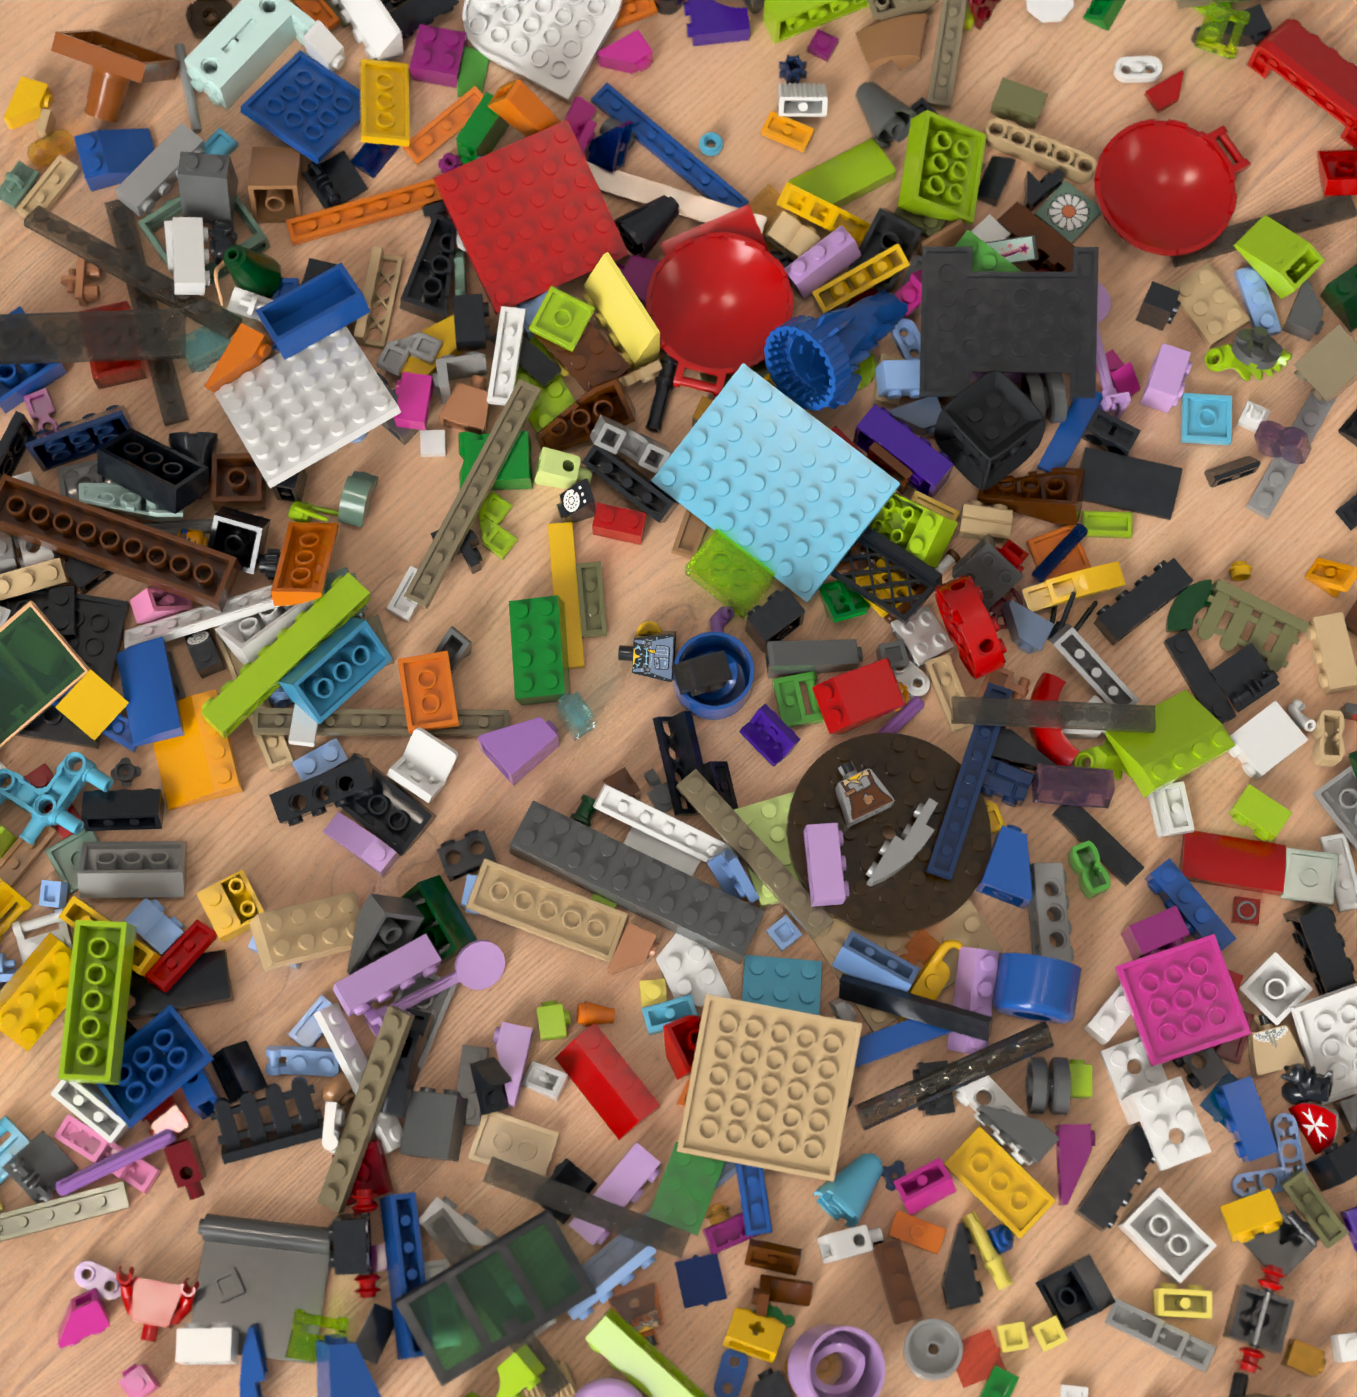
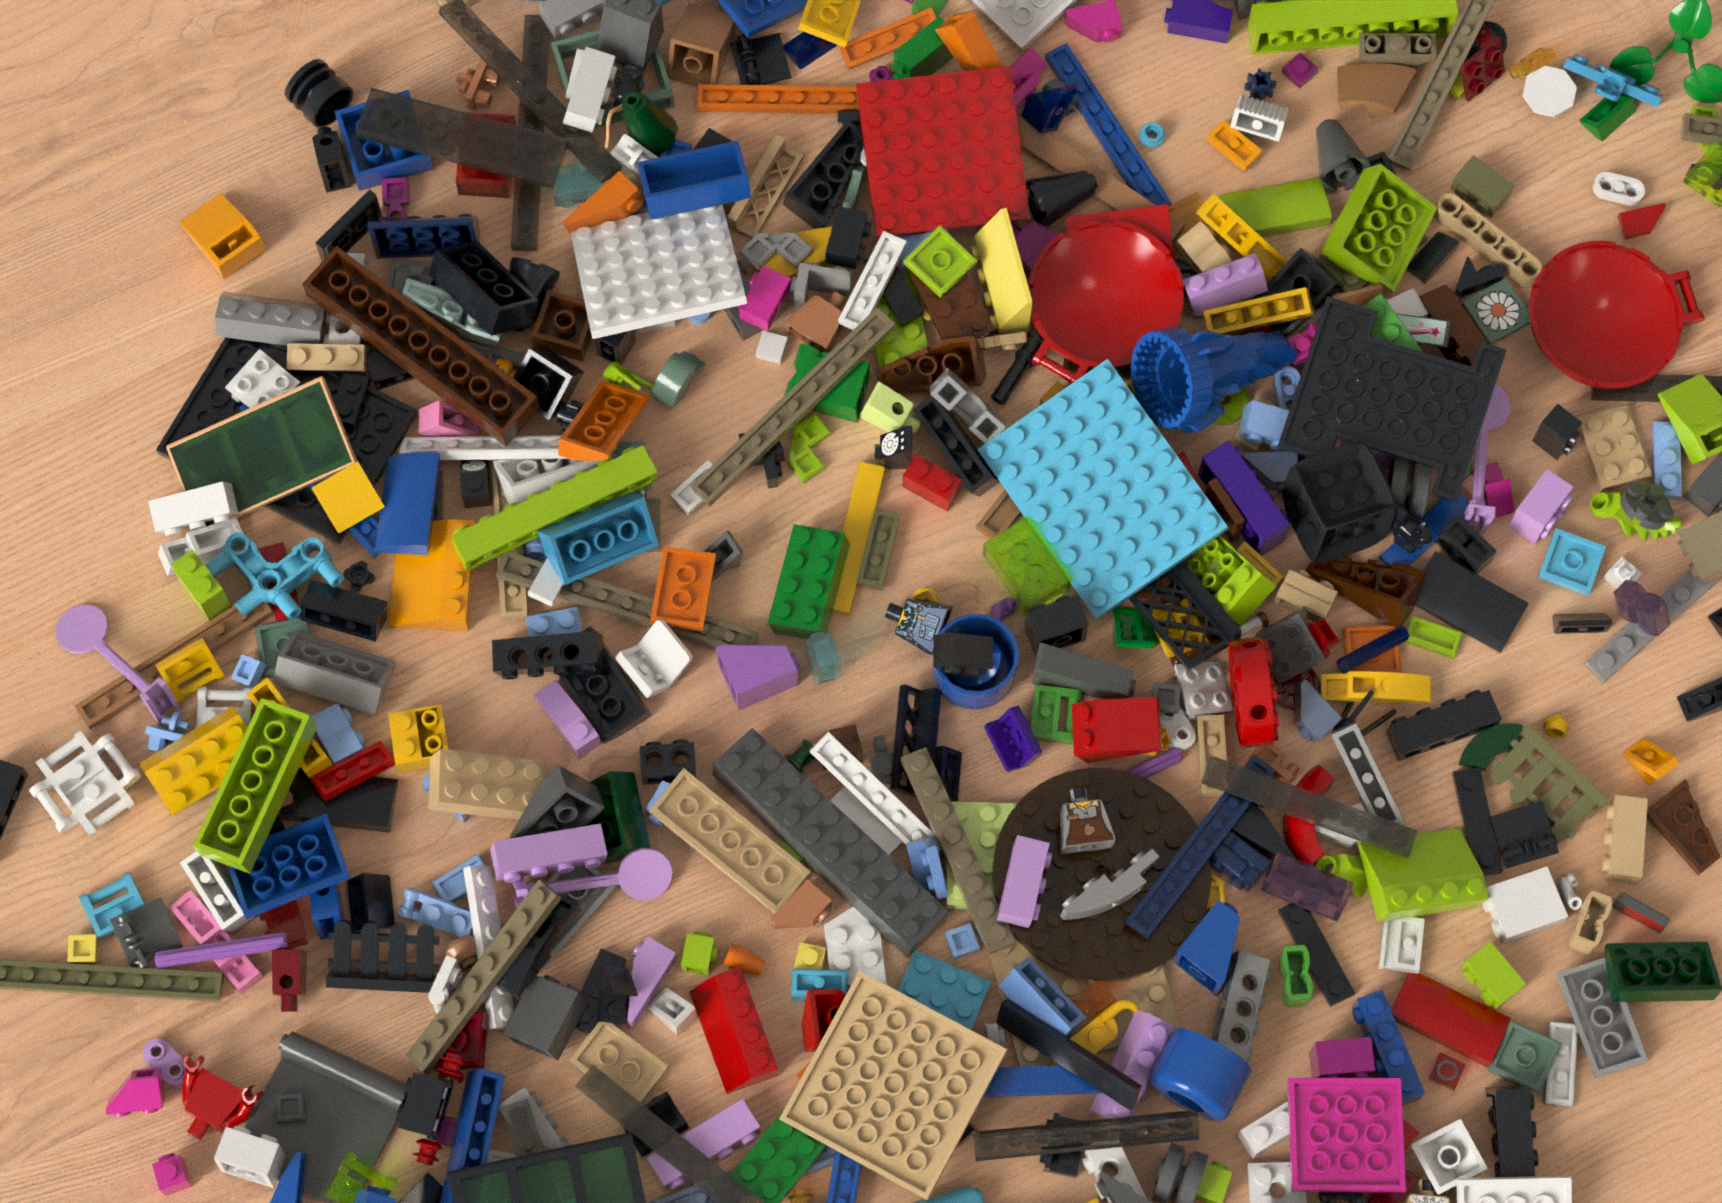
camera: 20 degrees right, 5 degrees down
(1059, 437) = (1409, 532): none -> black animal

